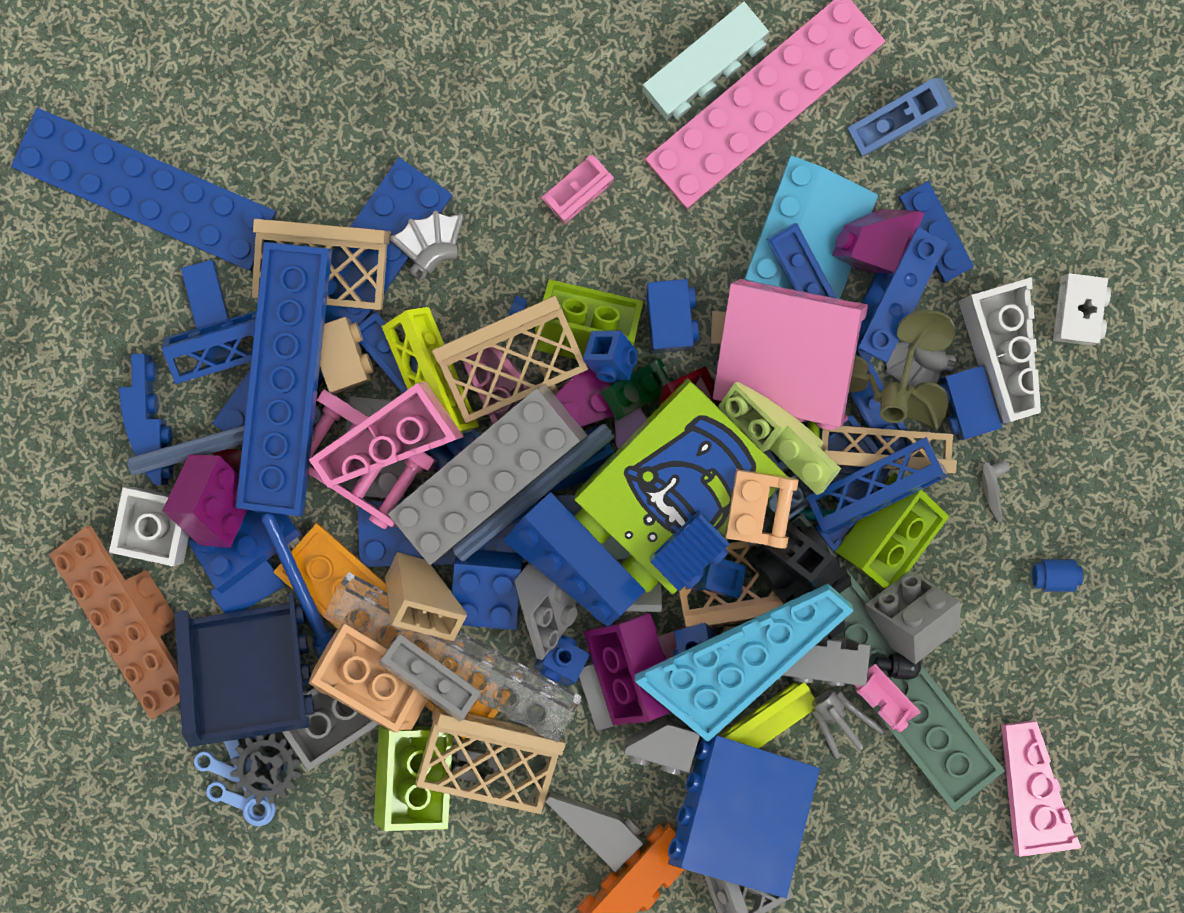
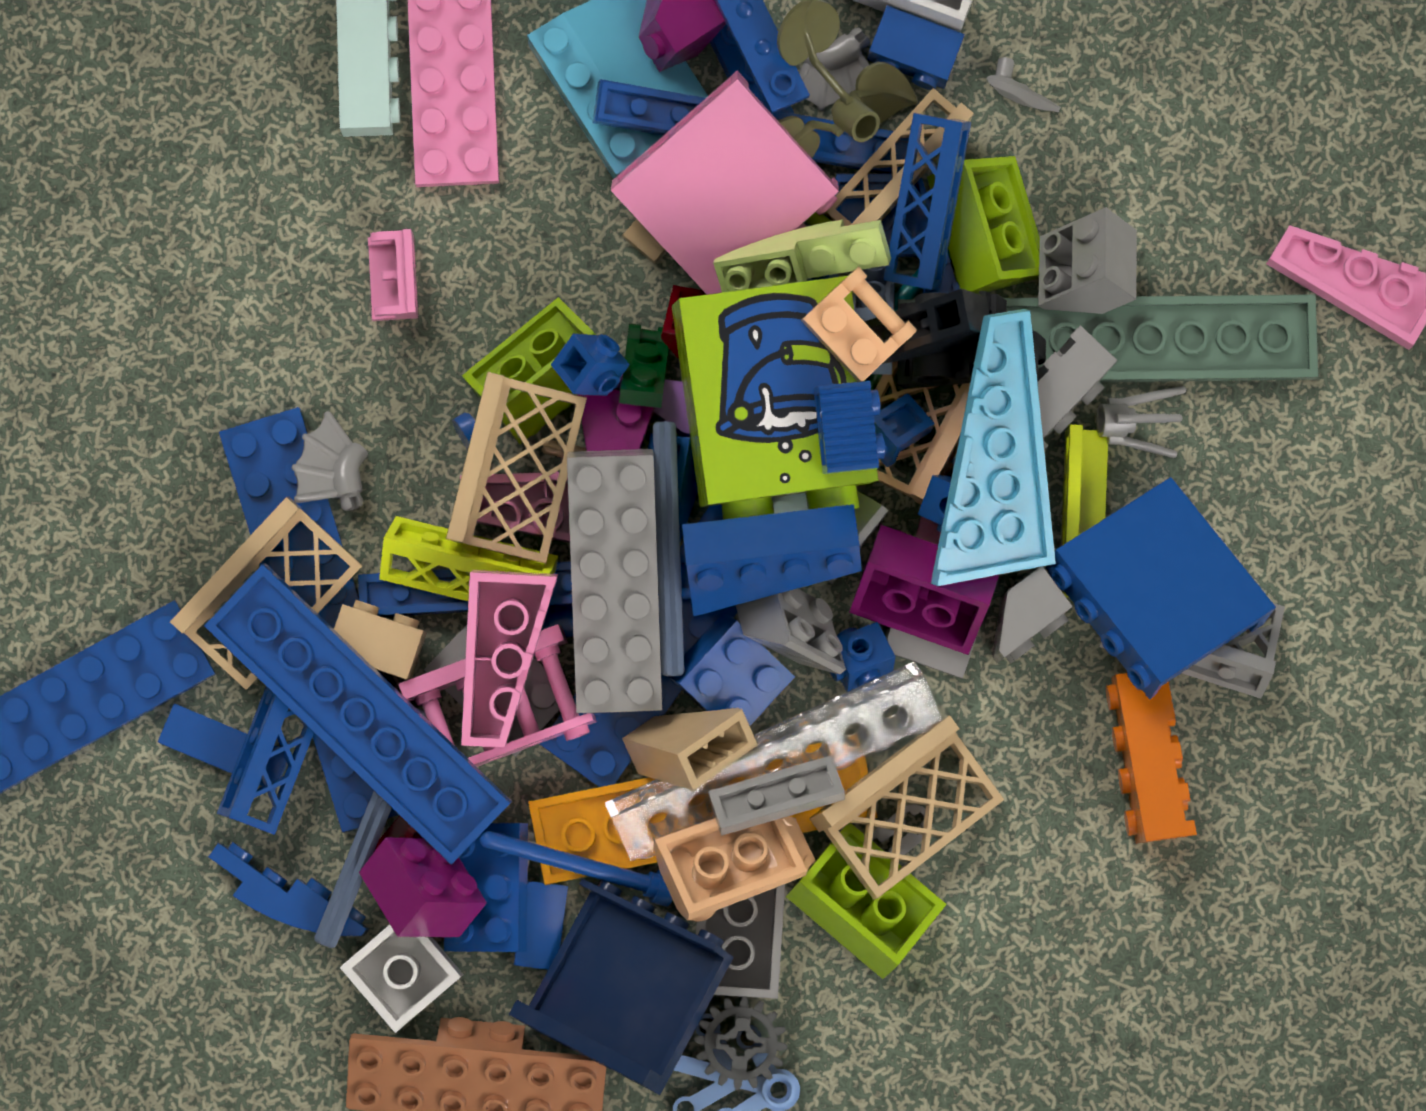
camera: 50 degrees left, 5 degrees down
(601, 829) = (1073, 747): light grey slope -> none
(670, 316) = (596, 278): blue brick -> none
(881, 691) = (1149, 353): bright pink hinge -> none
(898, 666) = (1127, 319): black cylinder -> none
(1057, 575) = (1156, 93): blue brick -> none

